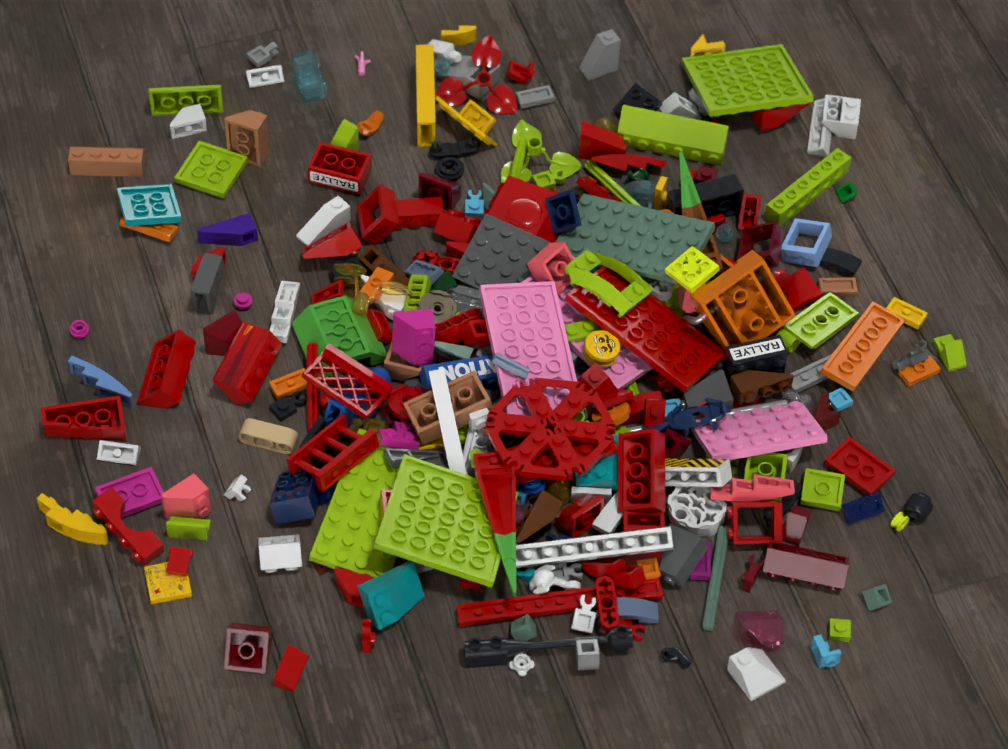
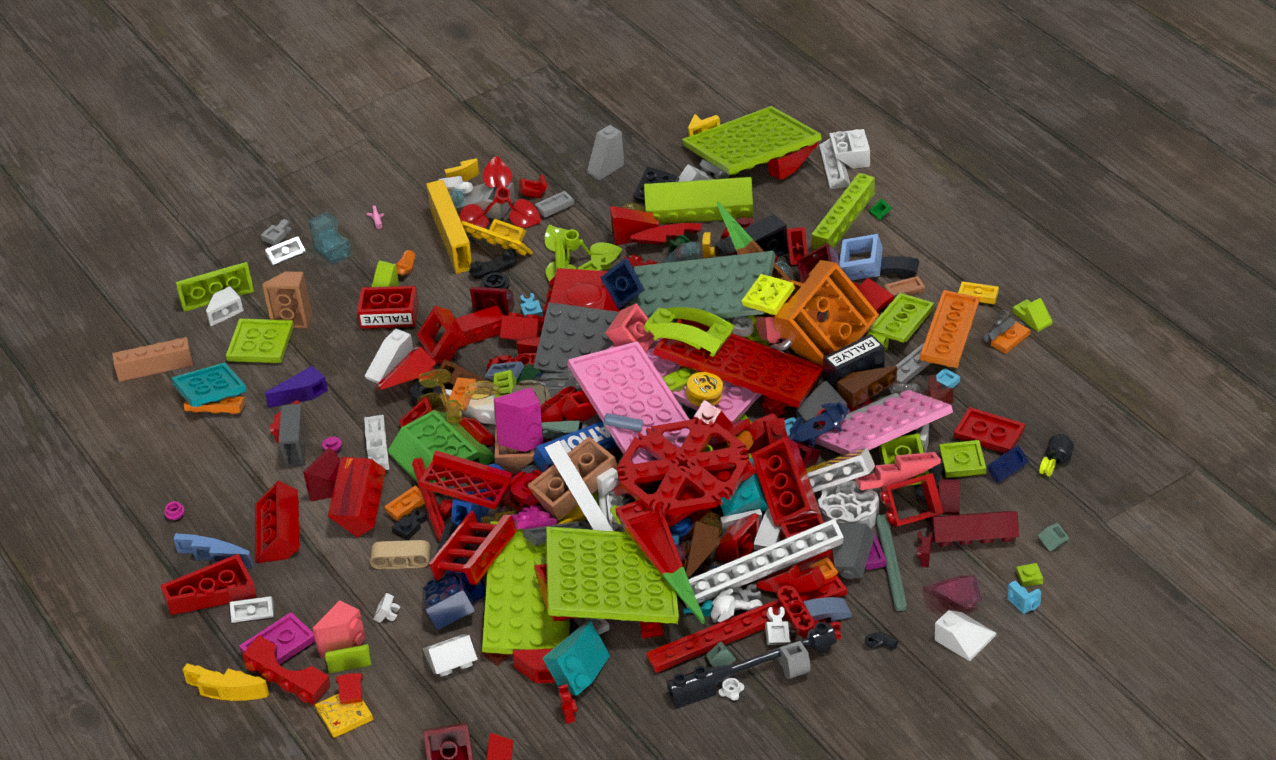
camera: 10 degrees left, 10 degrees down
(488, 194) = (540, 294): sand green slope -> none
(609, 183) = (648, 253): lime axle -> none

